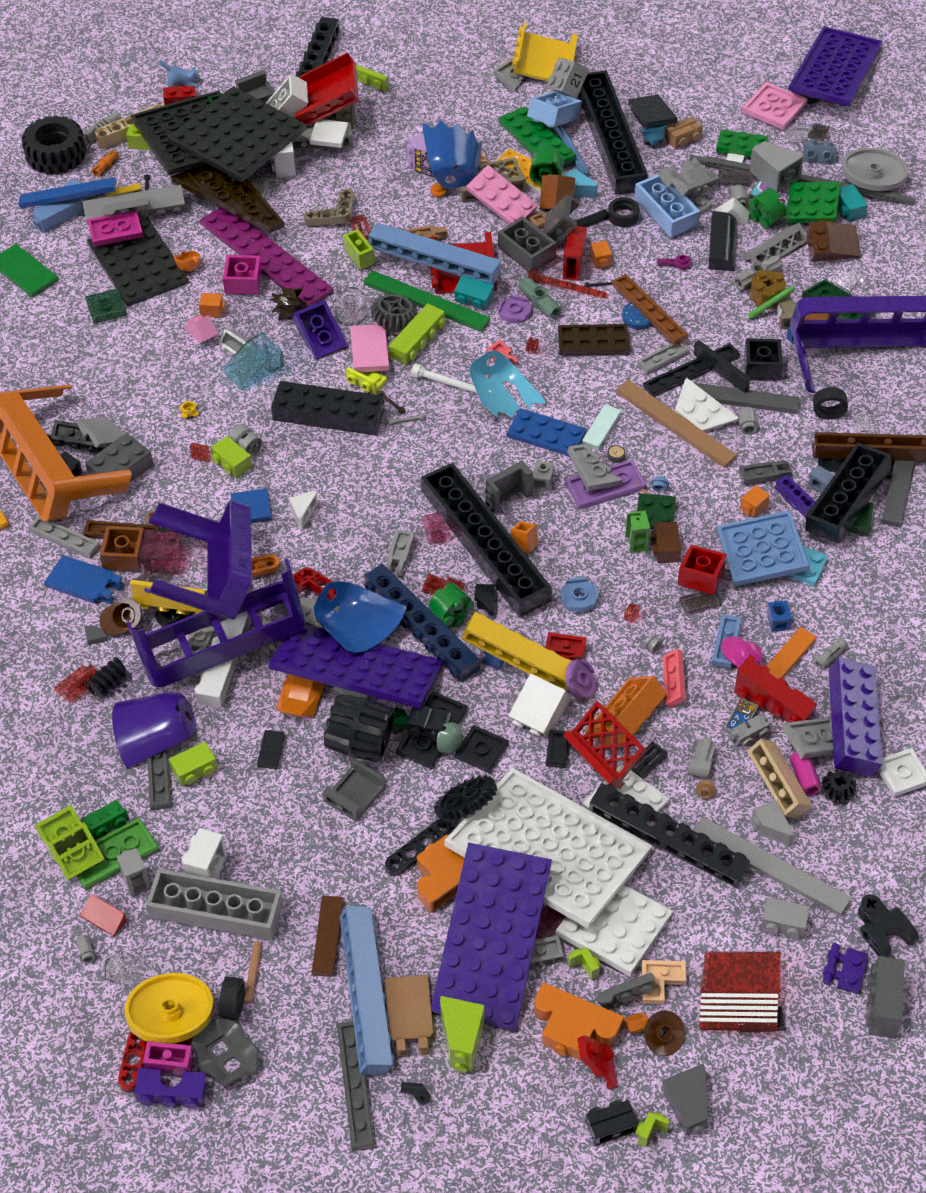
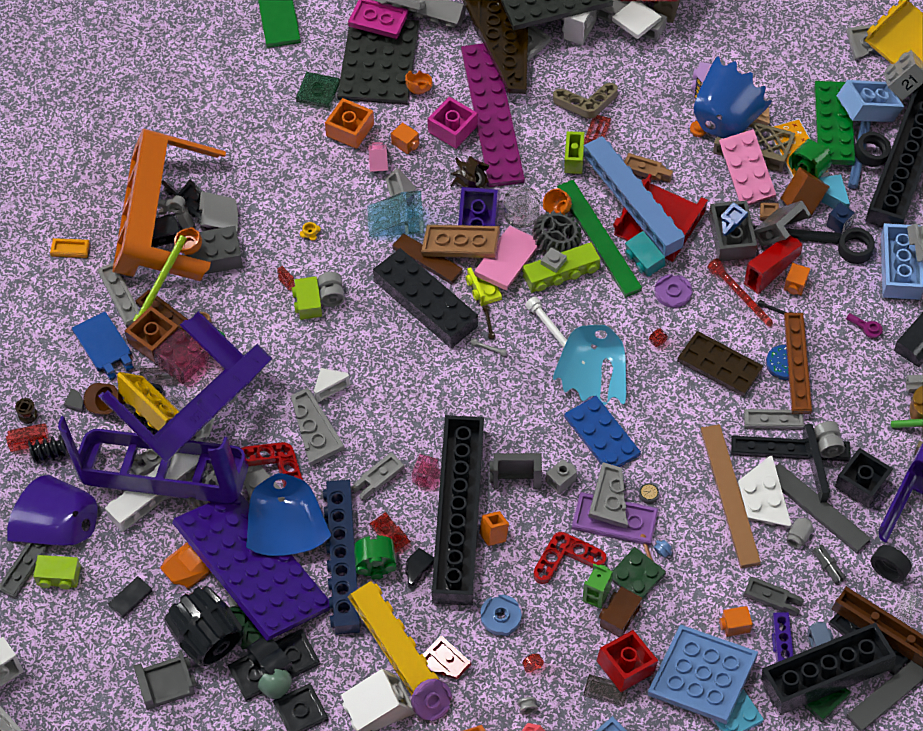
camera: 35 degrees right, 5 degrees up
(59, 662) = (26, 410): none -> dark brown wheel
(64, 442) = (176, 206): none -> light grey bar
(99, 505) = (162, 276): none -> lime bar
(101, 459) = (193, 241): none -> orange hair
(156, 315) = (349, 123): none -> orange brick
(258, 504) = (290, 355): blue tile -> none
(261, 563) = (253, 419): orange plate -> none
(321, 380) = (437, 265): none -> reddish brown tile
(321, 547) = (316, 431): none -> light grey wing
(322, 353) = (460, 241): none -> medium nougat tile
(374, 288) = (558, 201): none -> orange hair
(410, 329) = (553, 260): none -> light grey plate
(501, 347) = (623, 328): coral plate -> none
(523, 232) = (732, 218): none -> slope
(540, 297) = (704, 300): sand green piece -> none
(585, 134) = (867, 158): none -> black tyre
(588, 524) = (566, 548): none -> red beam
(597, 198) = (840, 218): none -> dark blue brick
(601, 427) = (657, 458): light aqua tile -> none
(719, 343) = (828, 439): none -> light grey wheel
(785, 430) = (828, 564): none -> dark grey pin

